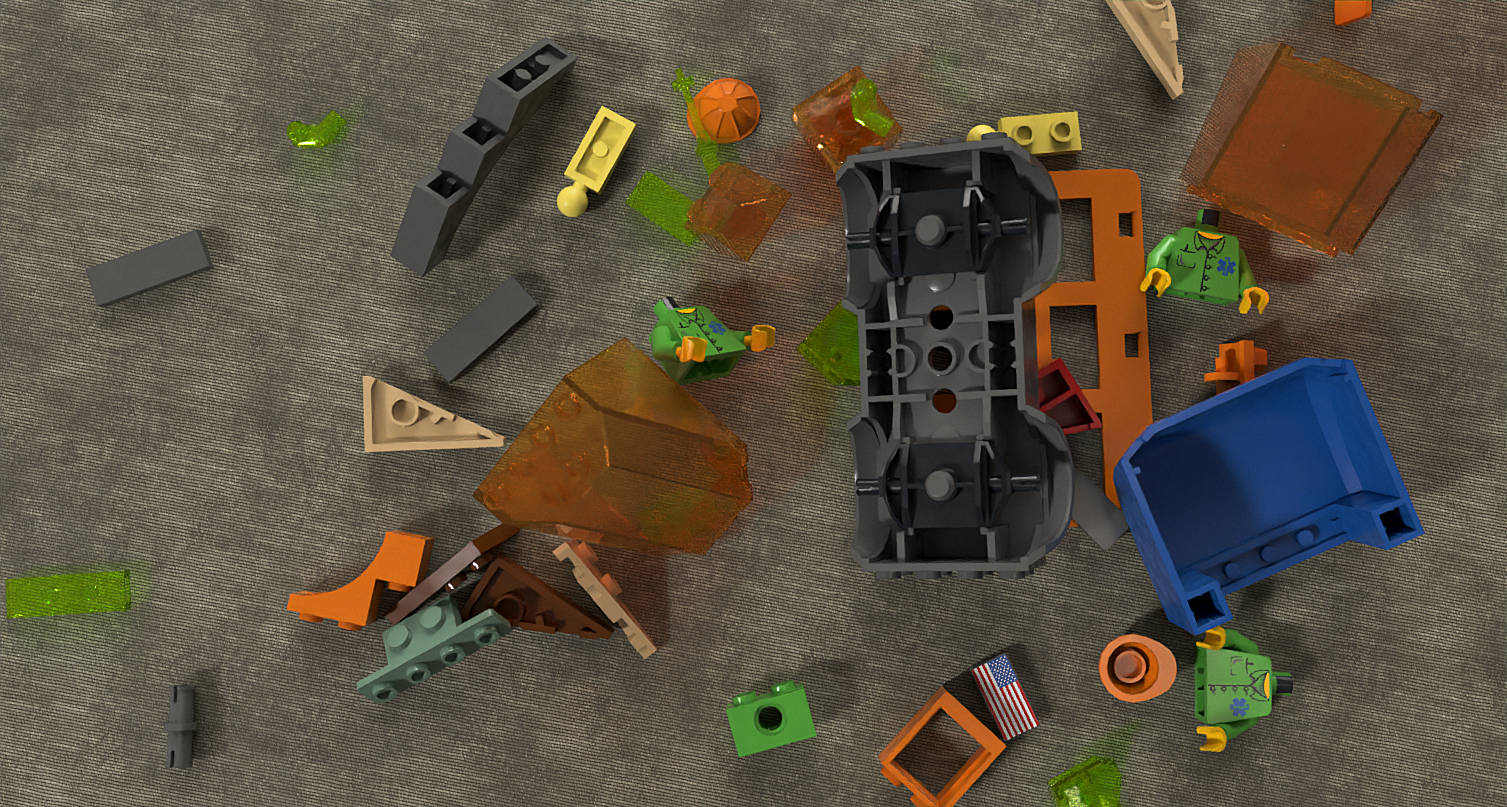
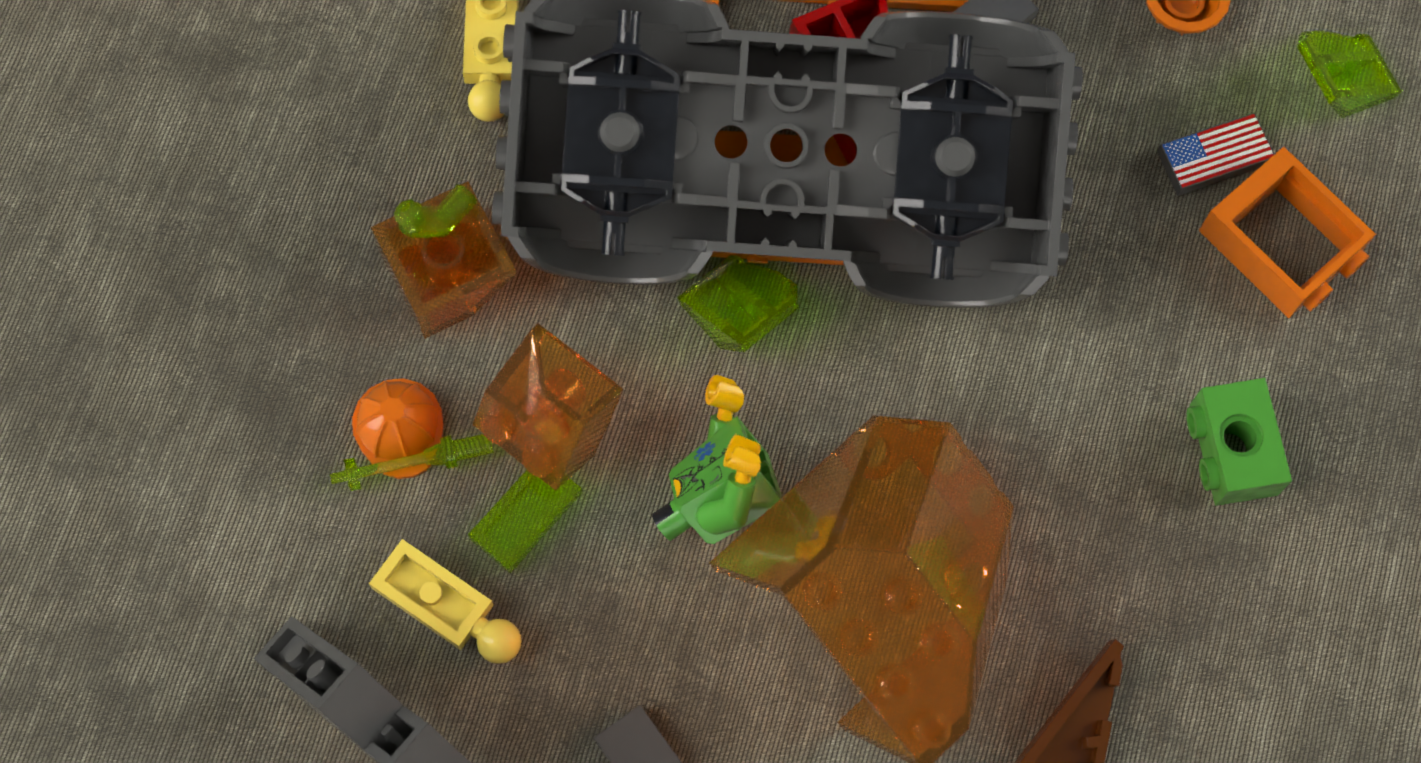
camera: 90 degrees left, 15 degrees down
(604, 592) = (1056, 646): tan wing -> none

